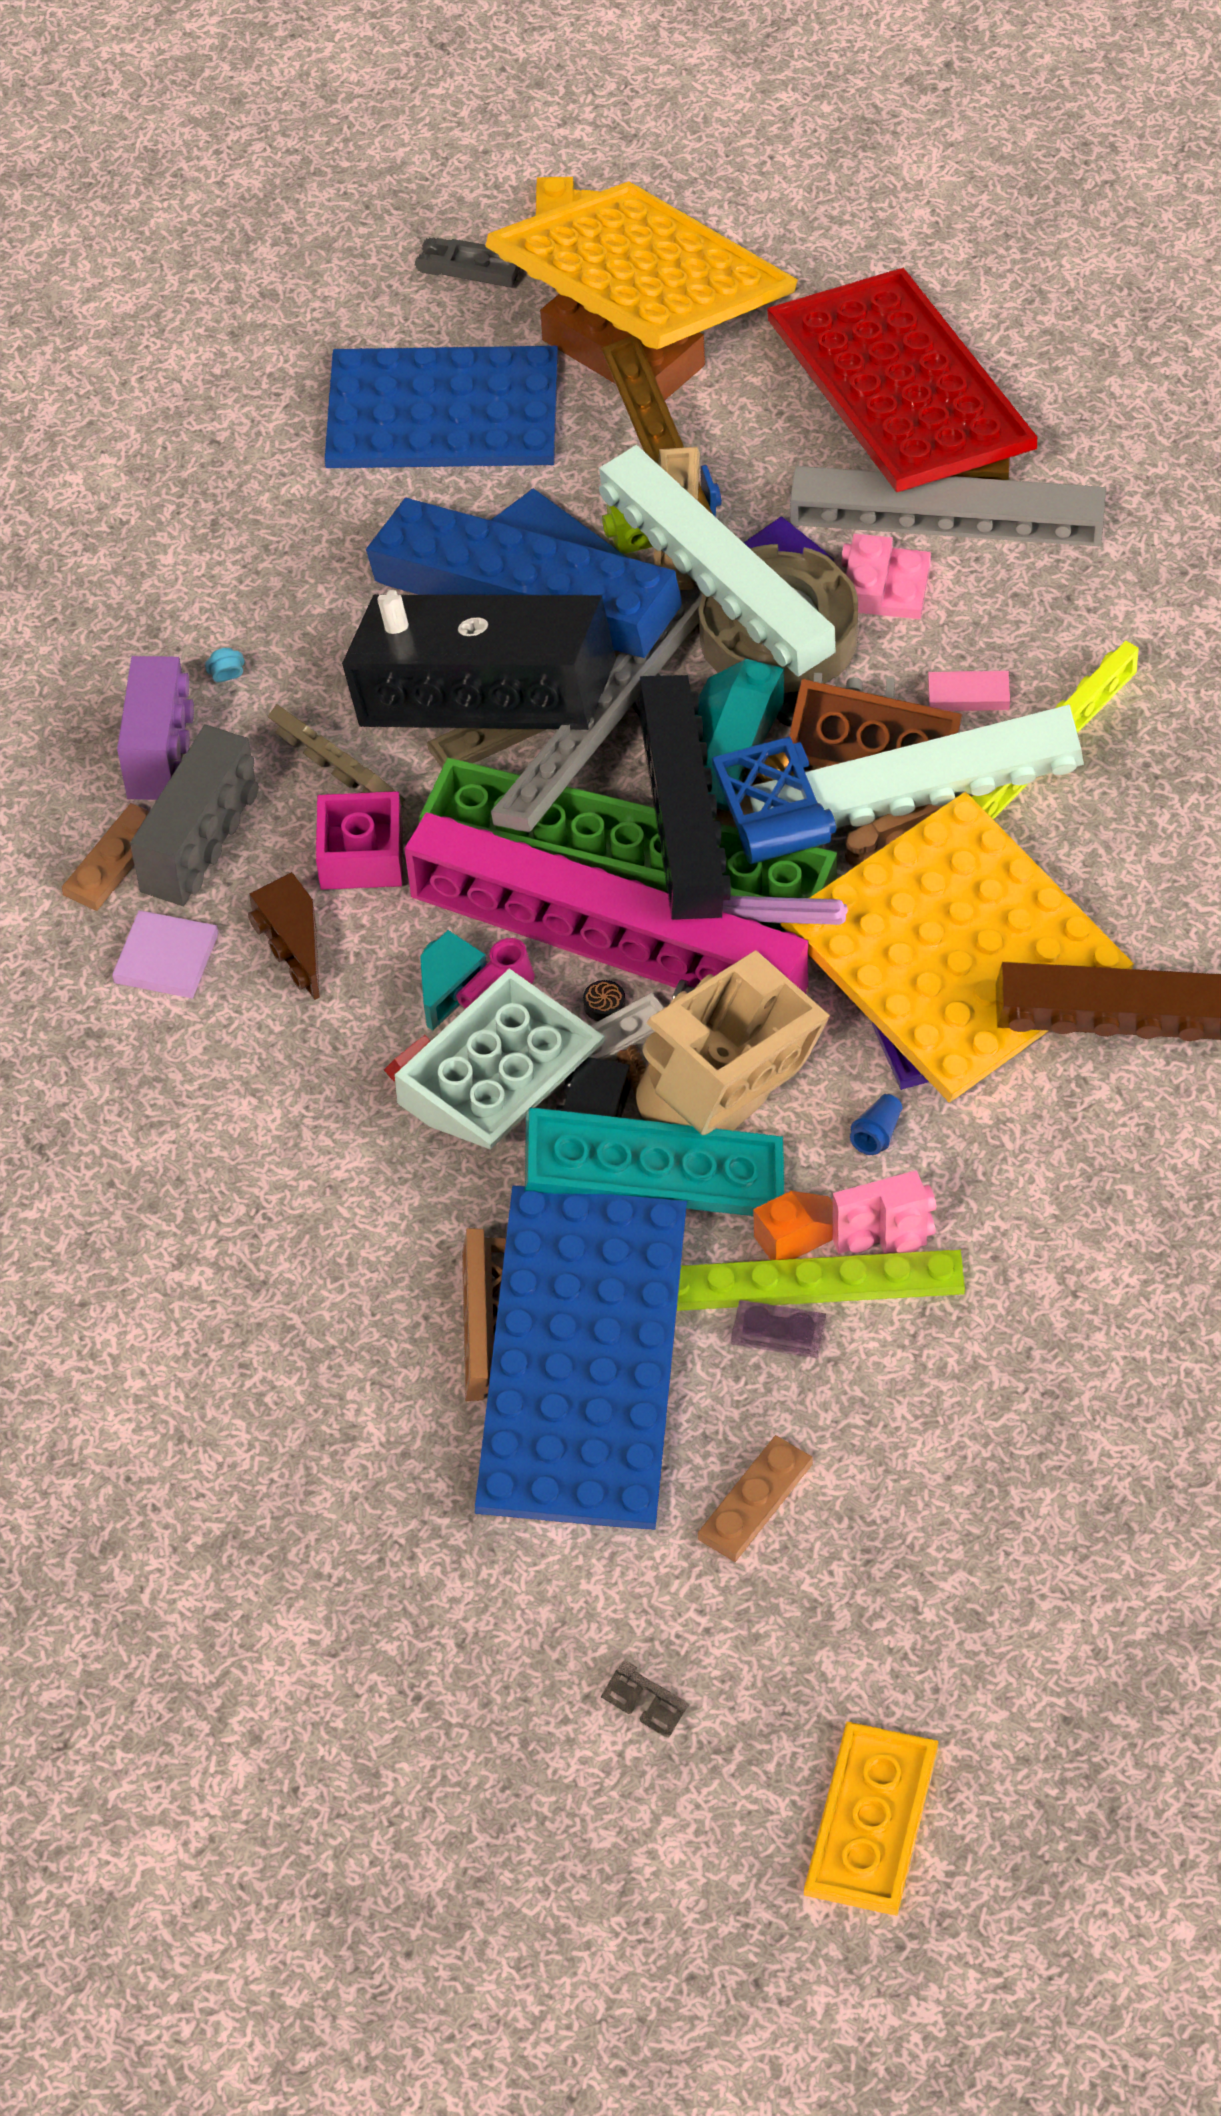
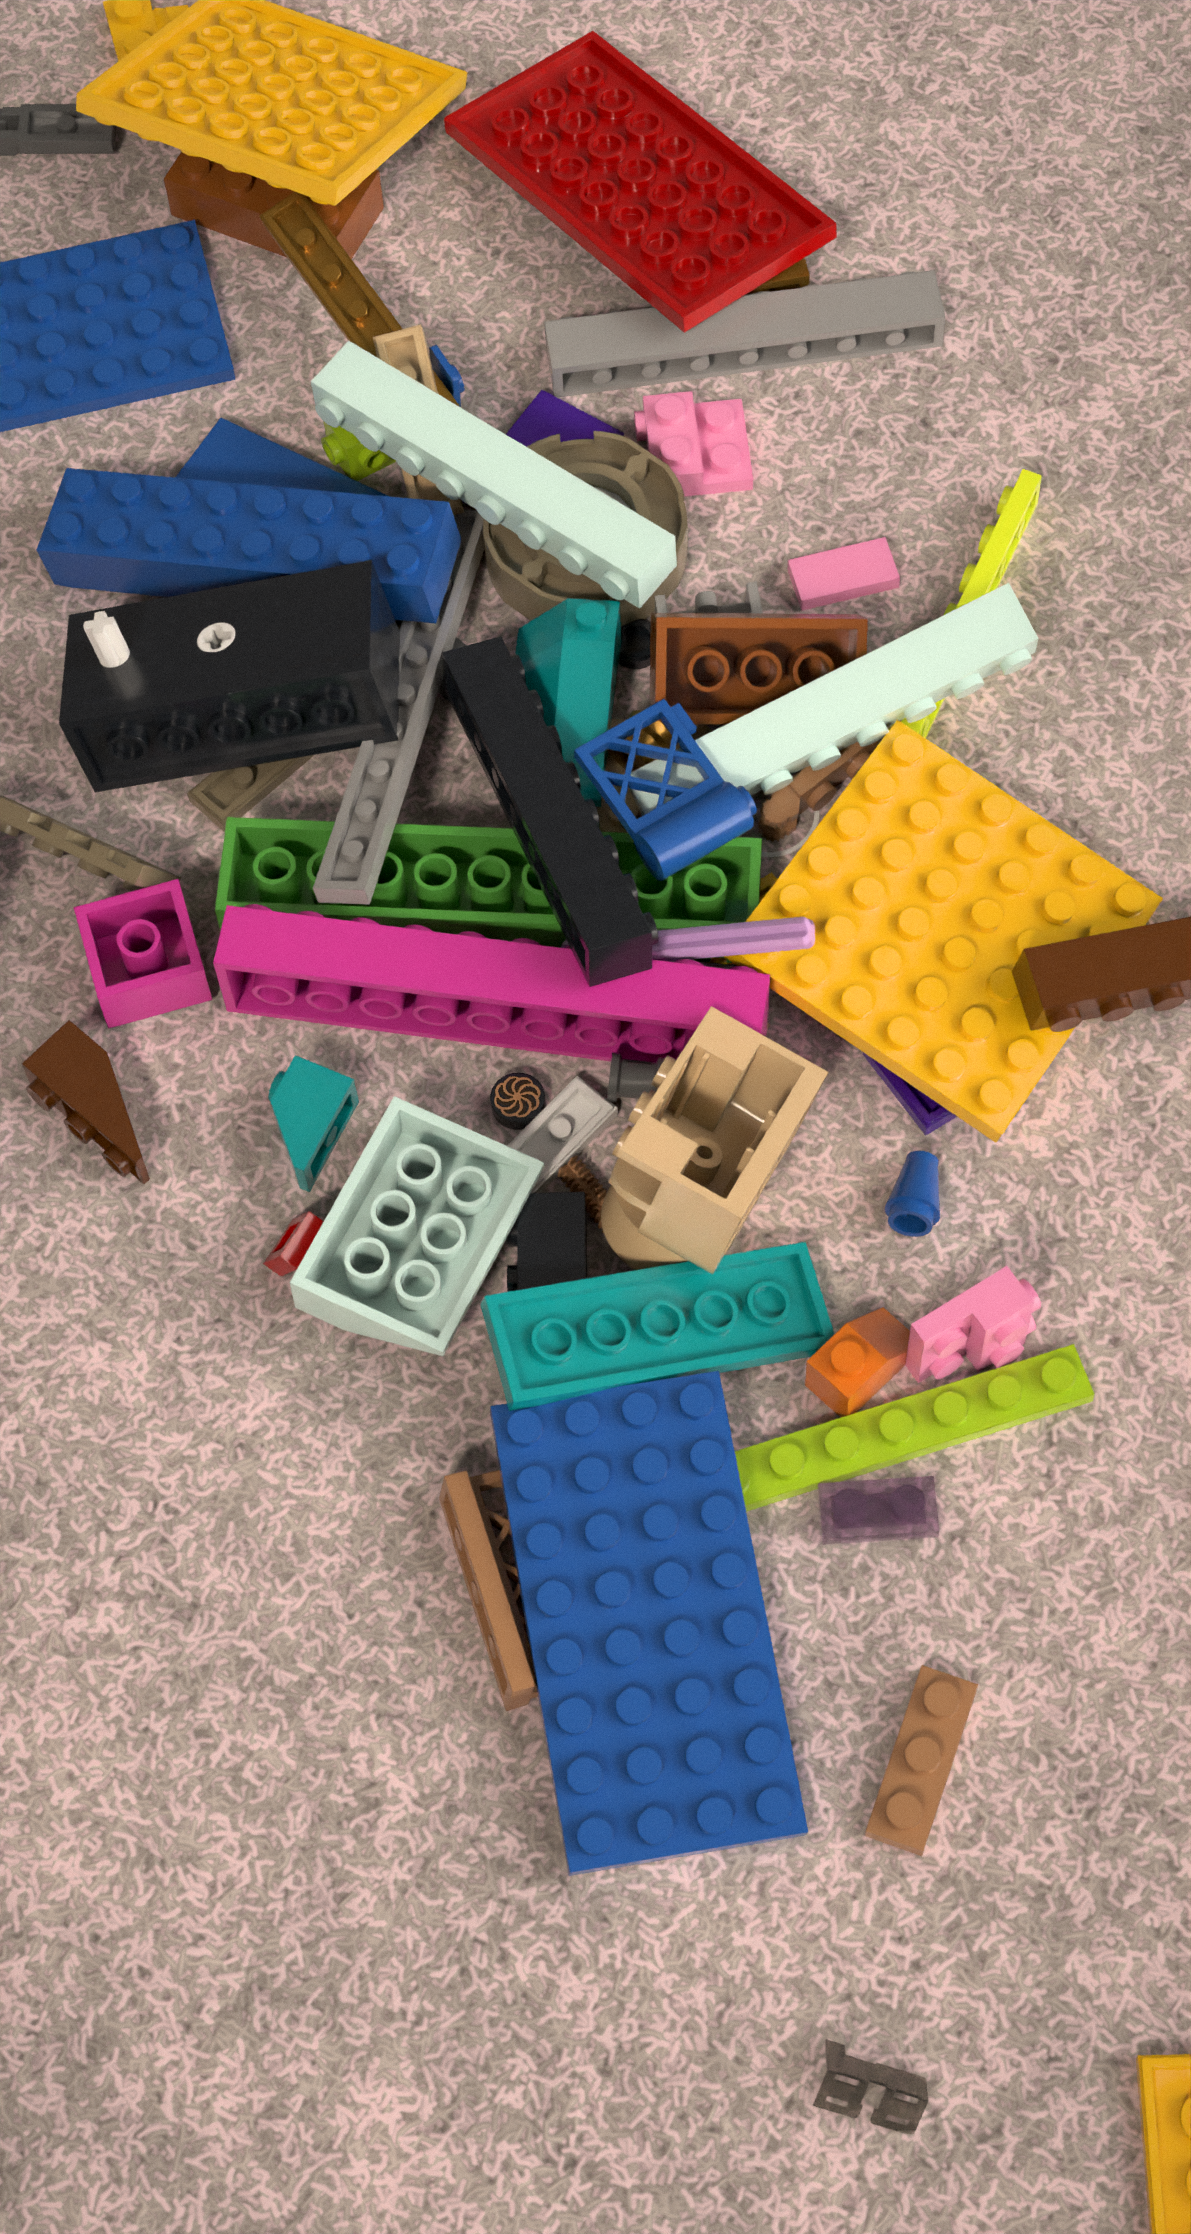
camera: 15 degrees left, 10 degrees up
(504, 955) = (371, 1100): dark pink piece -> none

